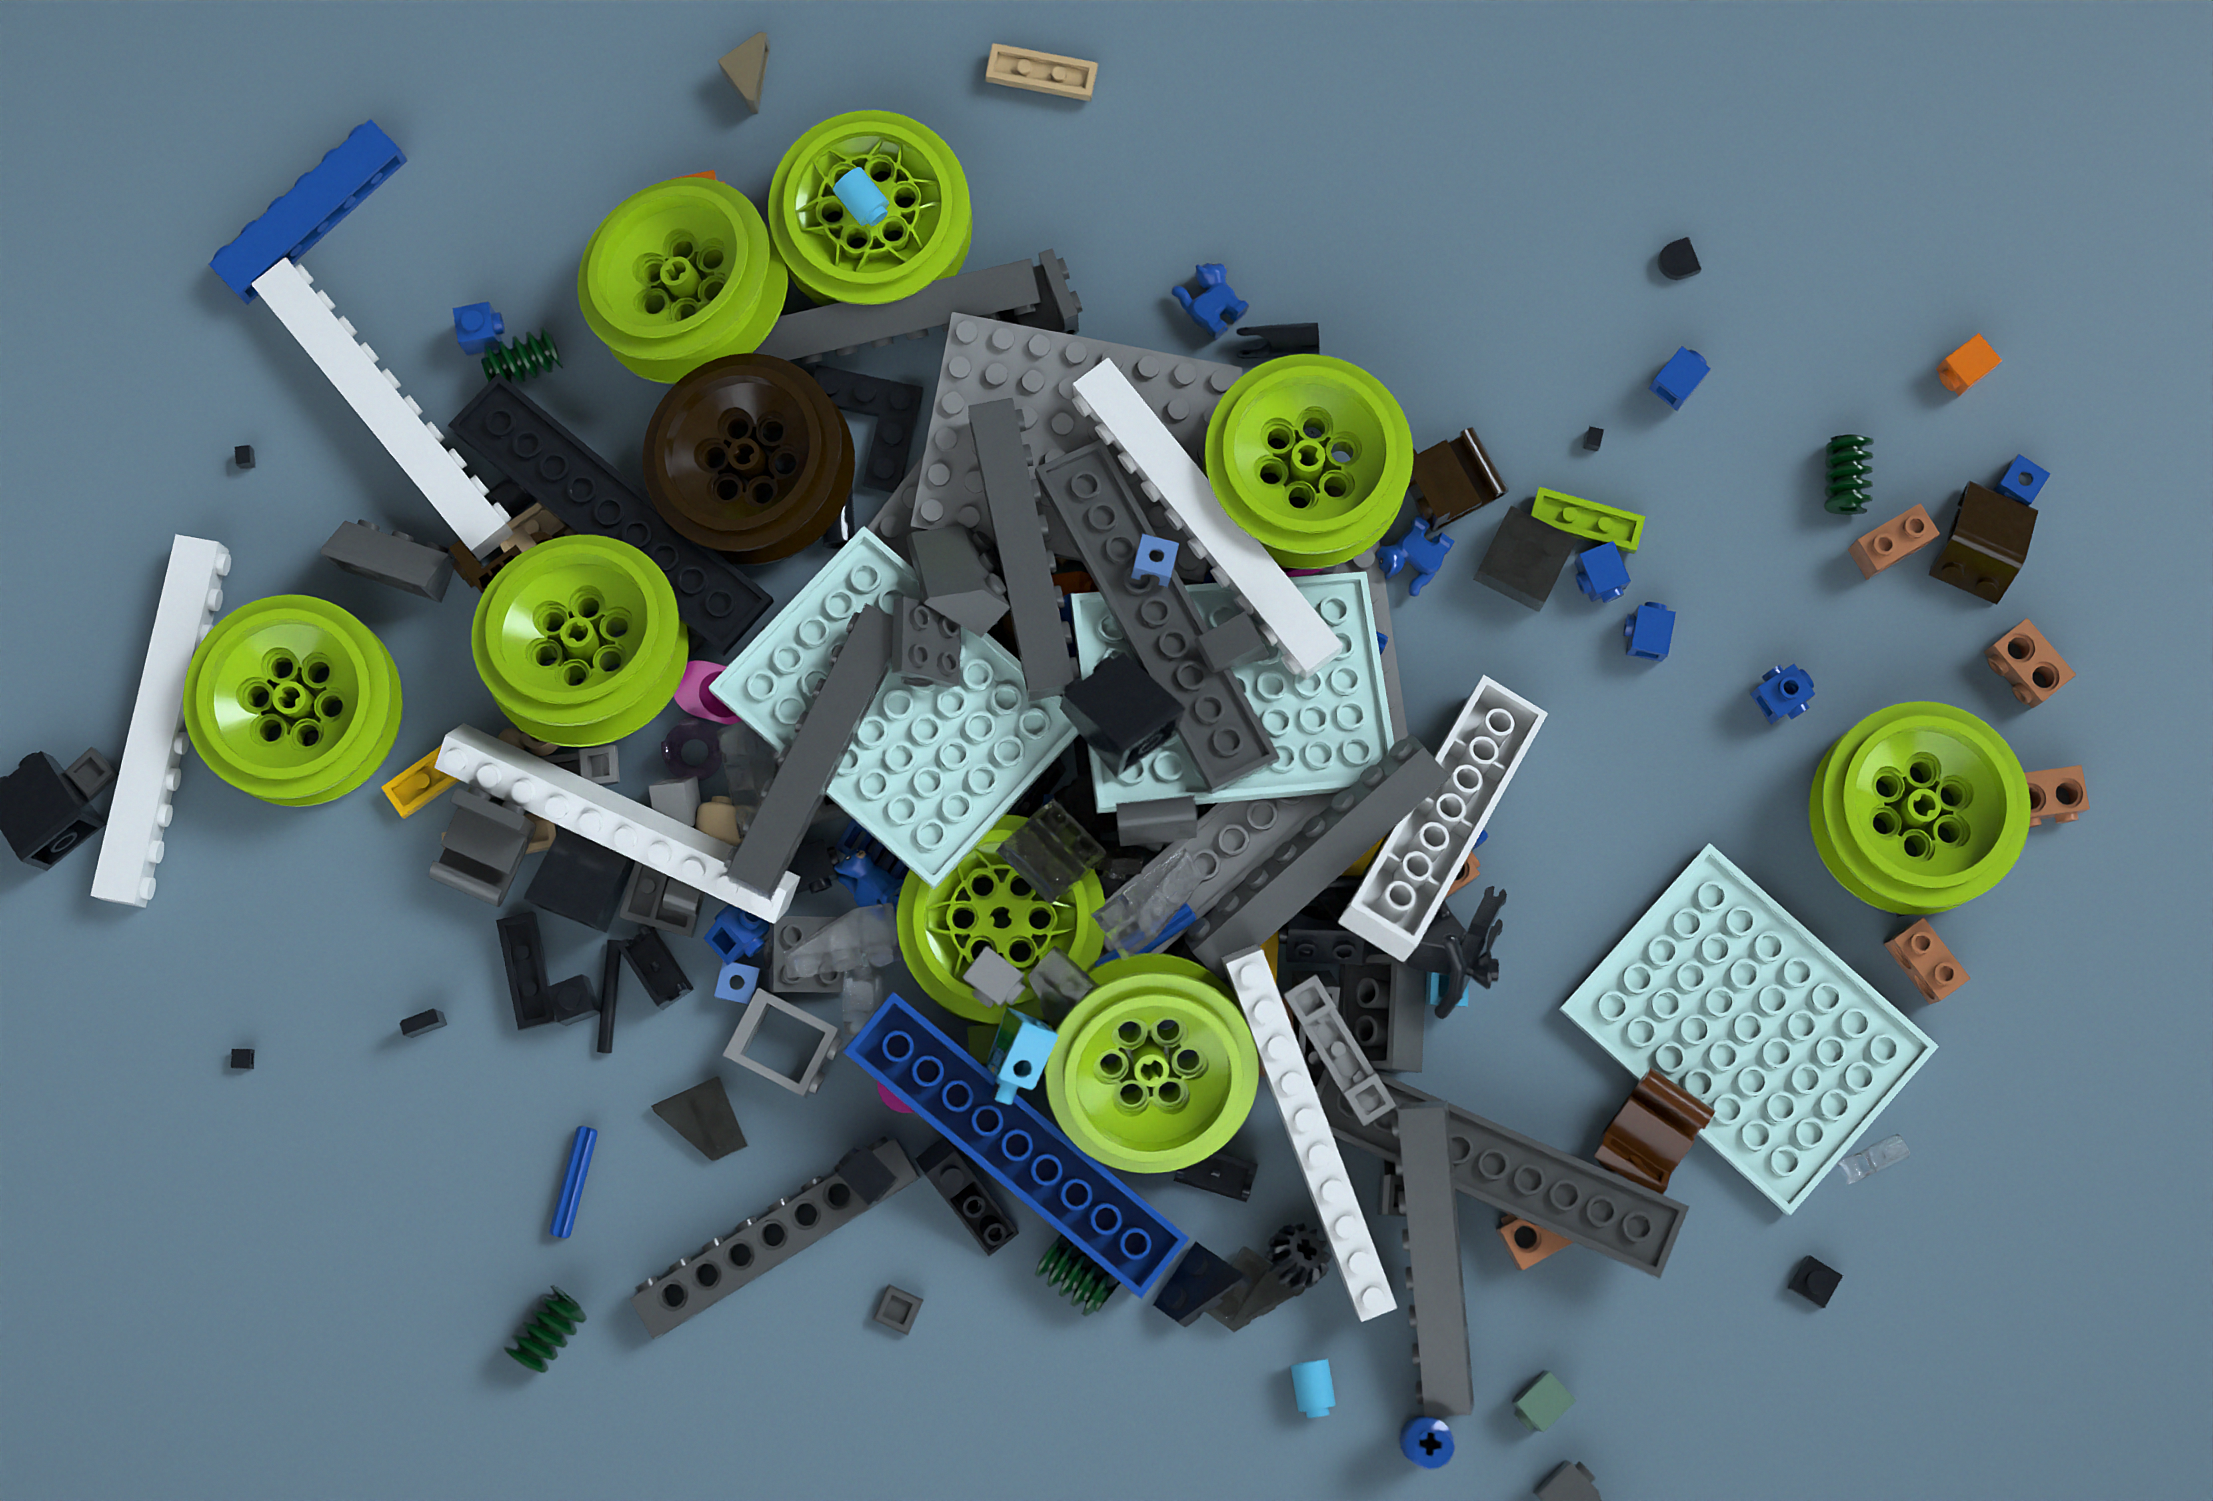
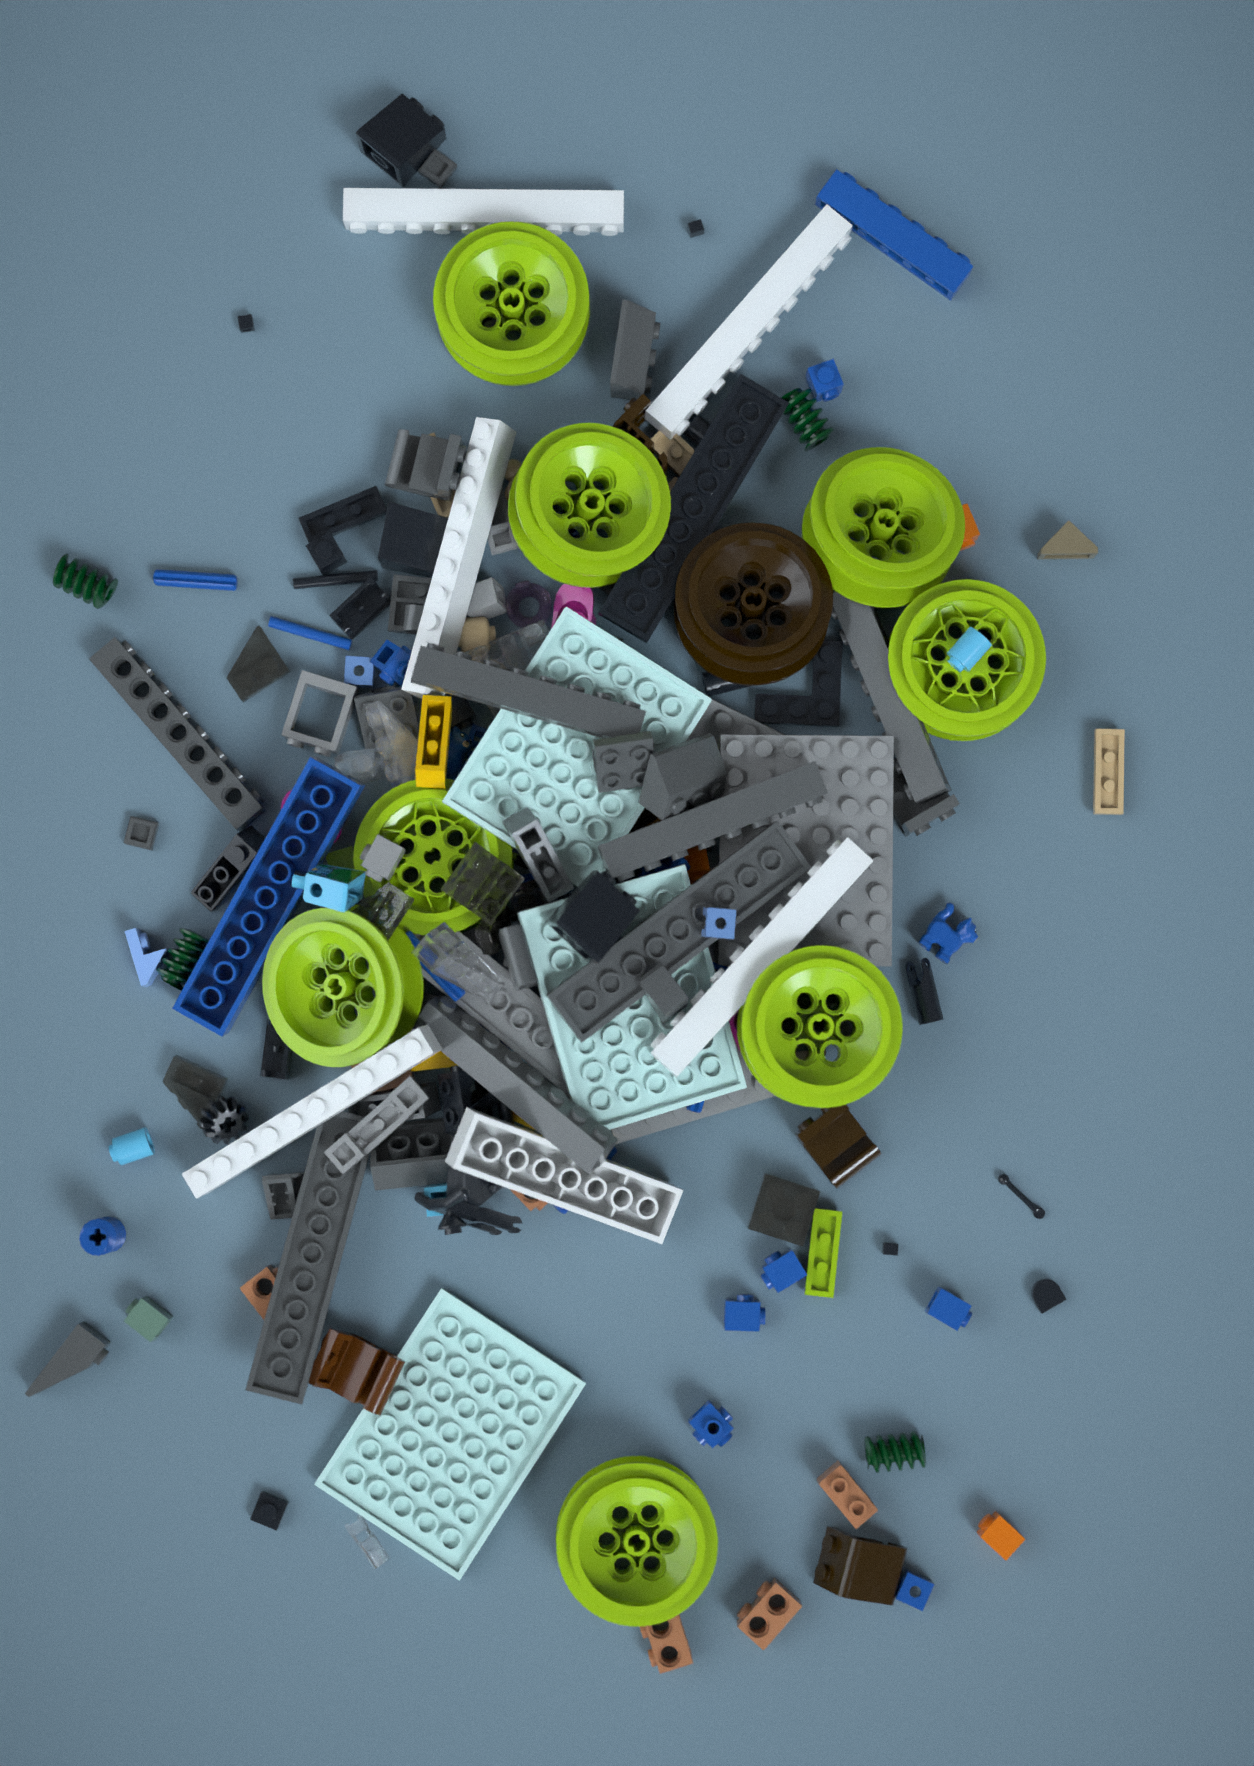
camera: 80 degrees right, 5 degrees up
(418, 785) = (467, 406): yellow plate -> none
(422, 1023) = (292, 447): black tile -> none
(674, 1041) = (310, 633): none -> blue piece
(852, 890) = (433, 741): none -> yellow brick
(866, 1174) = (229, 791): black brick -> none
(1024, 773) = (538, 854): none -> dark grey slope
(1075, 1329) = (144, 963): none -> light blue slope
(1198, 1285) = (191, 1050): black wing -> none
(1418, 552) = (775, 1125): blue animal -> none
(1435, 1258) = (236, 1220): dark grey brick -> none
(1575, 254) = (1038, 1212): none -> black hinge
(1926, 961) = (522, 1562): nougat brick -> none

